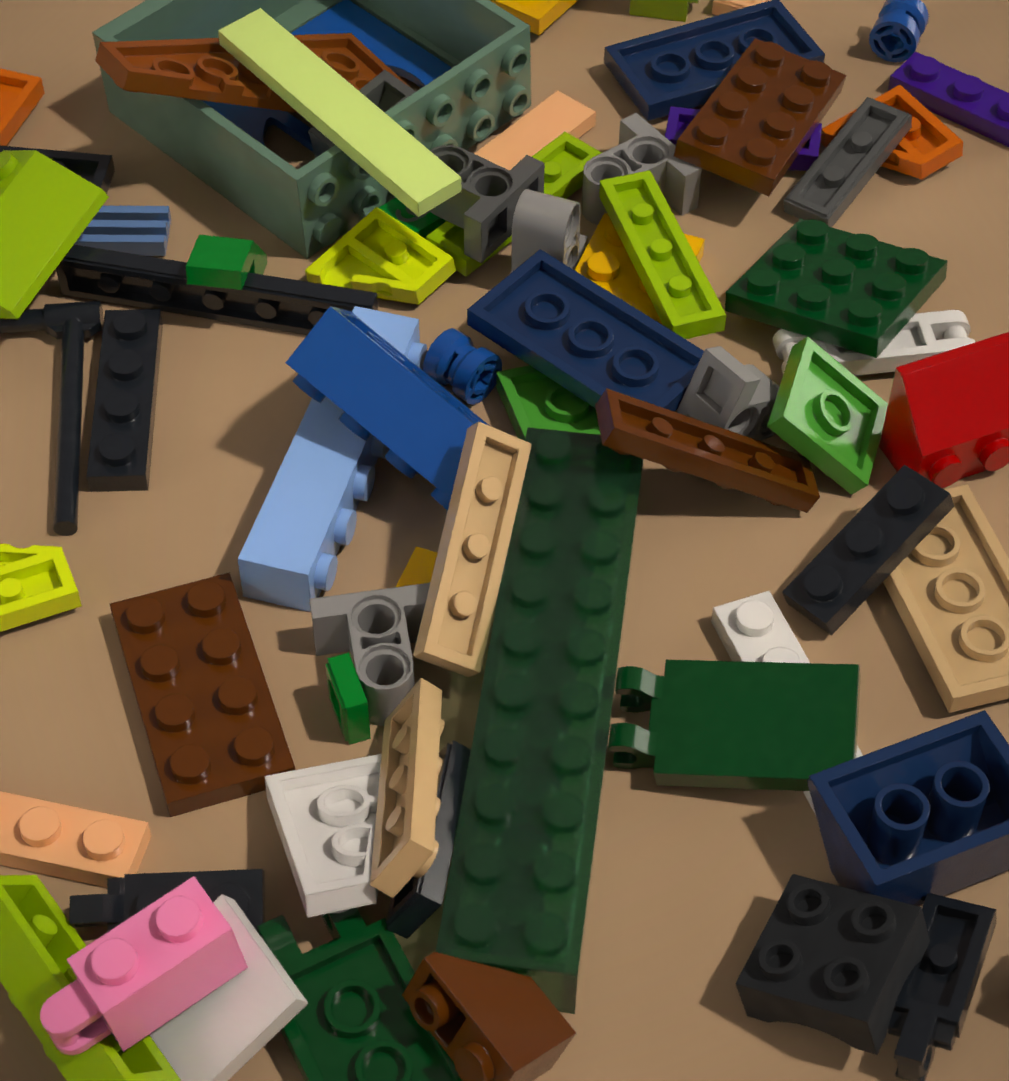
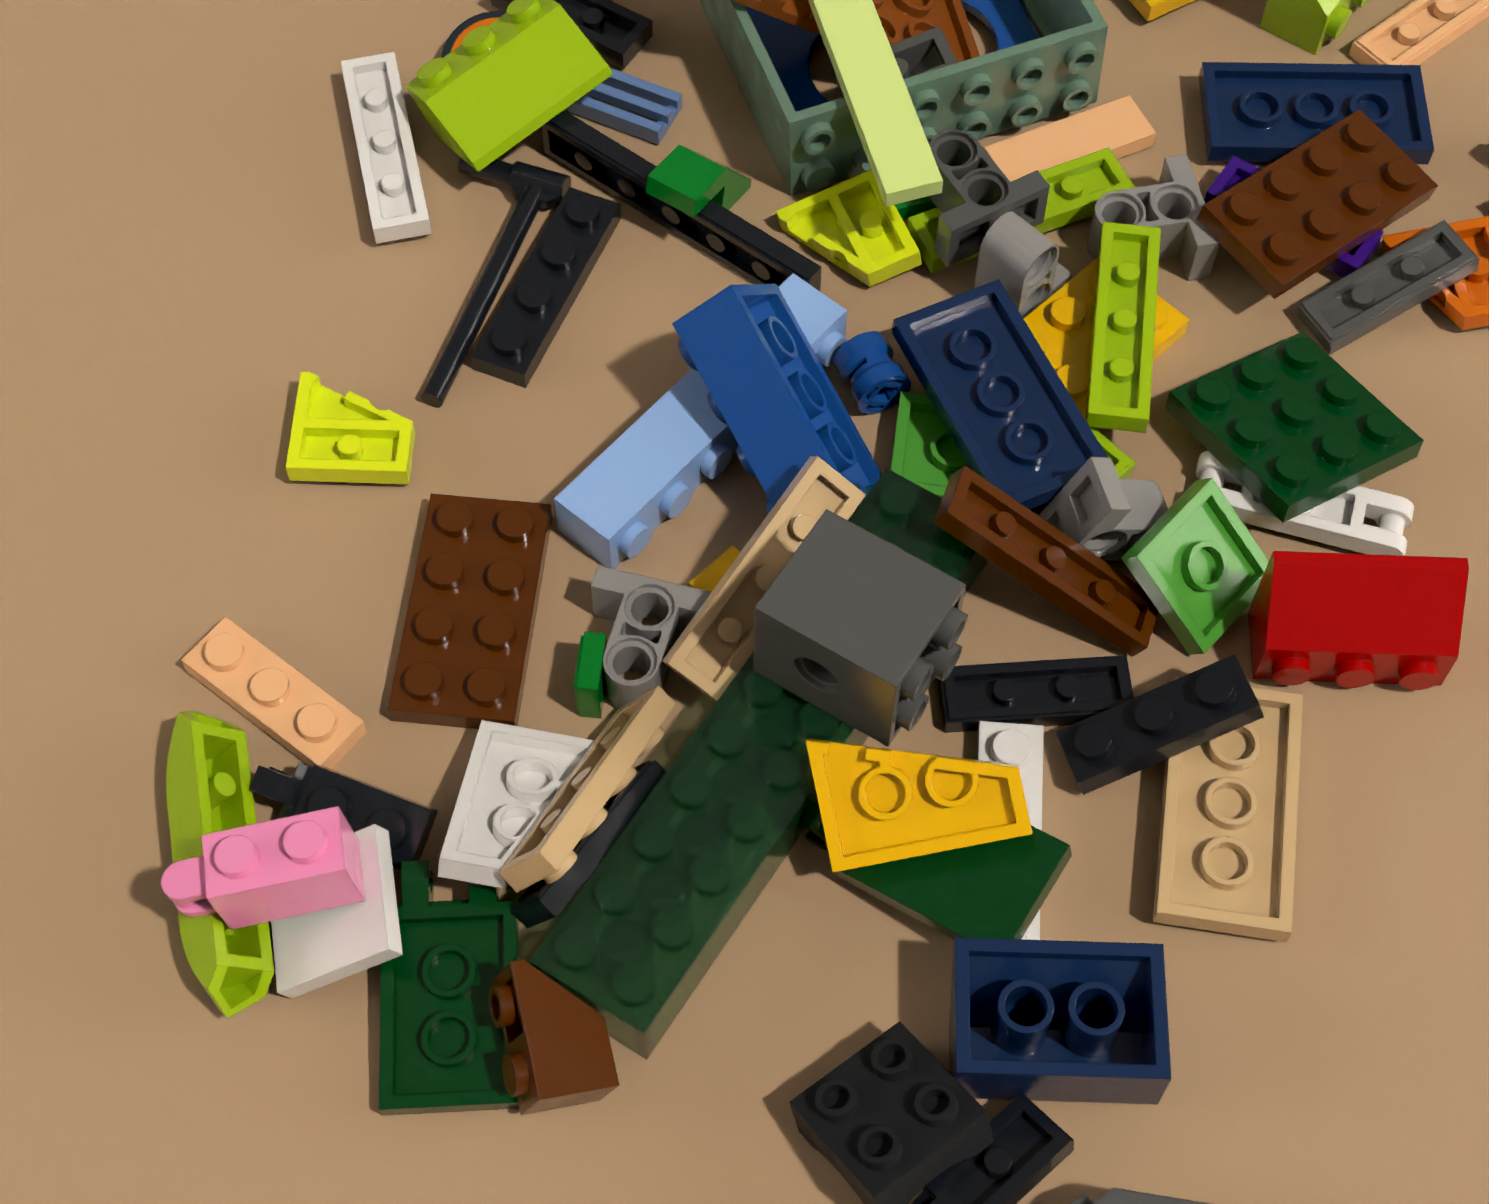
camera: 25 degrees right, 10 degrees up
(596, 545) = (859, 628): none -> dark grey brick
(707, 682) = (911, 804): none -> yellow wing
(739, 570) = (1033, 691): none -> black tile

